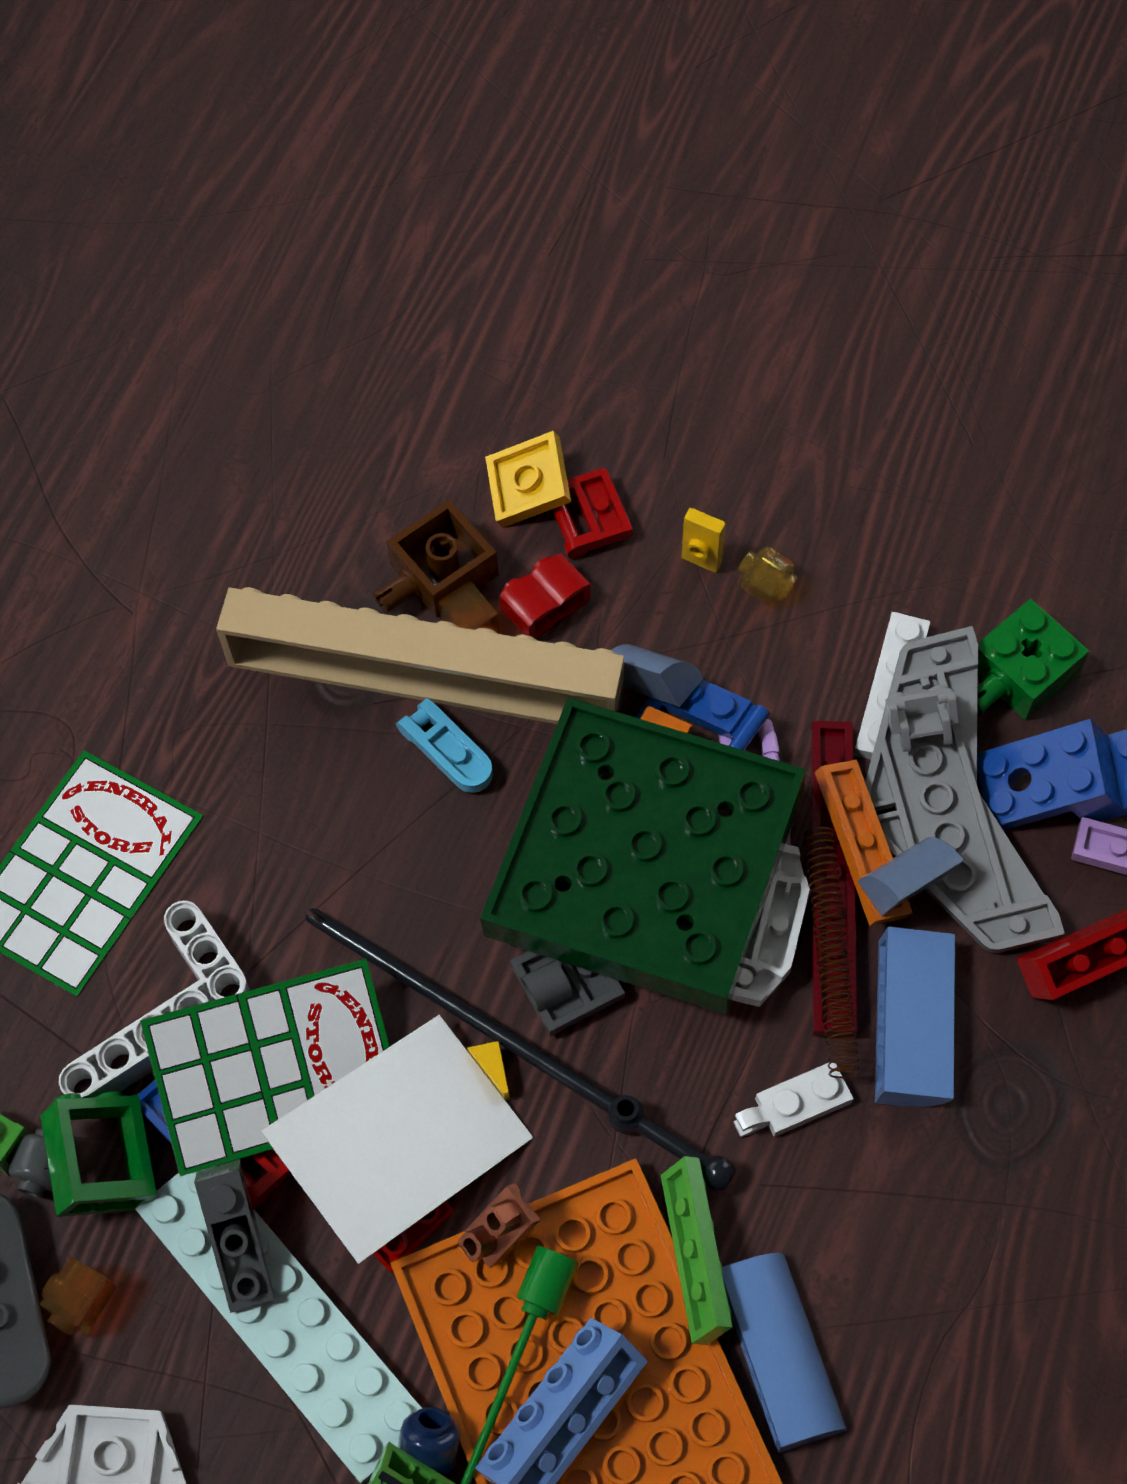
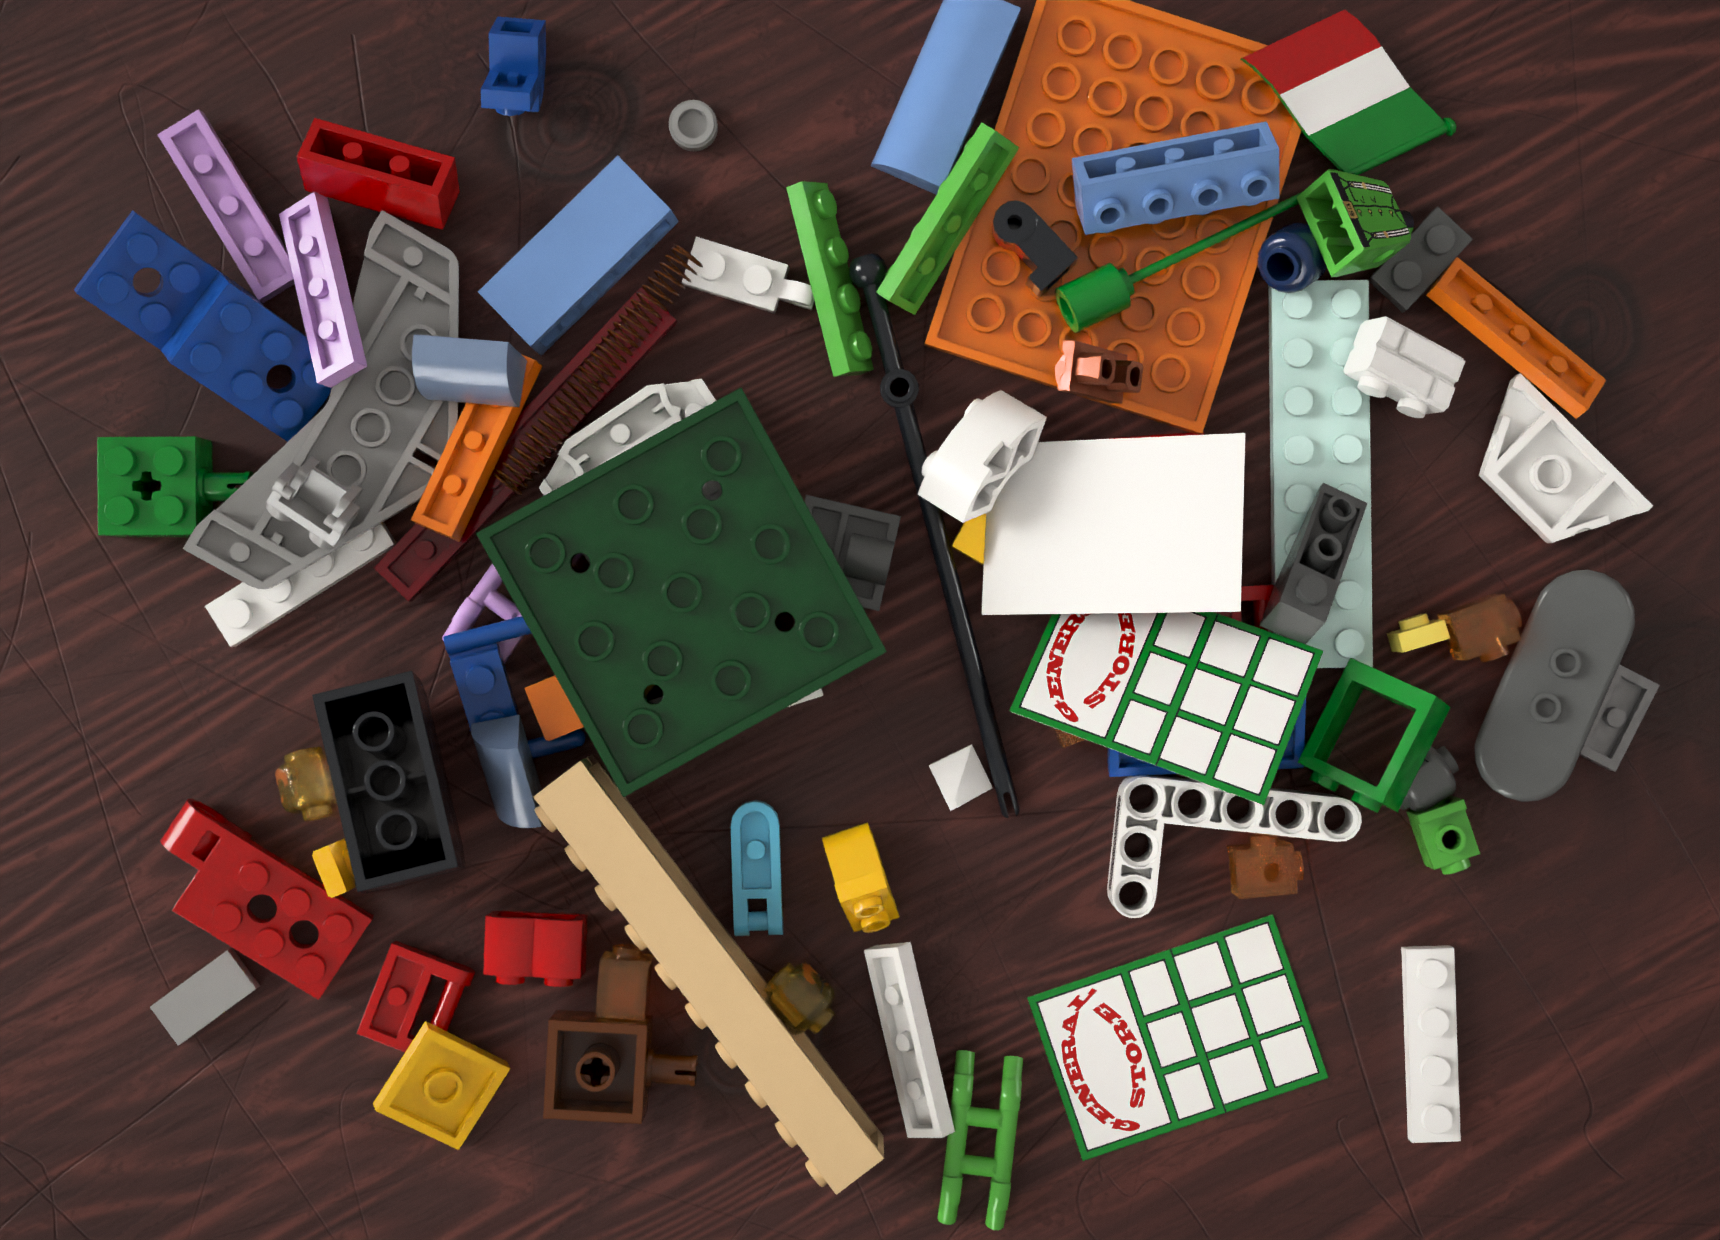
camera: 140 degrees left, 25 degrees up
(105, 1011) = (1264, 867): none -> clear orange brick
(120, 1256) = (1417, 633): none -> light yellow plate
(158, 728) = (965, 1115): none -> bright green piece
(259, 725) = (909, 1040): none -> white plate
(282, 1432) = (1403, 367): none -> white brick
(351, 693) = (800, 998): none -> clear yellow head
(363, 907) = (960, 777): none -> white slope
(376, 790) = (860, 879): none -> yellow pin
(530, 1111) = (981, 455): none -> white brick
(622, 1285) = (1024, 232): none -> black leg
(713, 422) = (205, 996): none -> light grey tile
(715, 599) = (389, 782): none -> black brick
(747, 1149) = (829, 278): none -> bright green plate
(761, 493) = (235, 871): none -> red hinge
(926, 1173) = (693, 125): none -> light grey tile
(1049, 851) = (322, 290): none -> lavender plate
(1074, 1102) = (515, 66): none -> blue brick

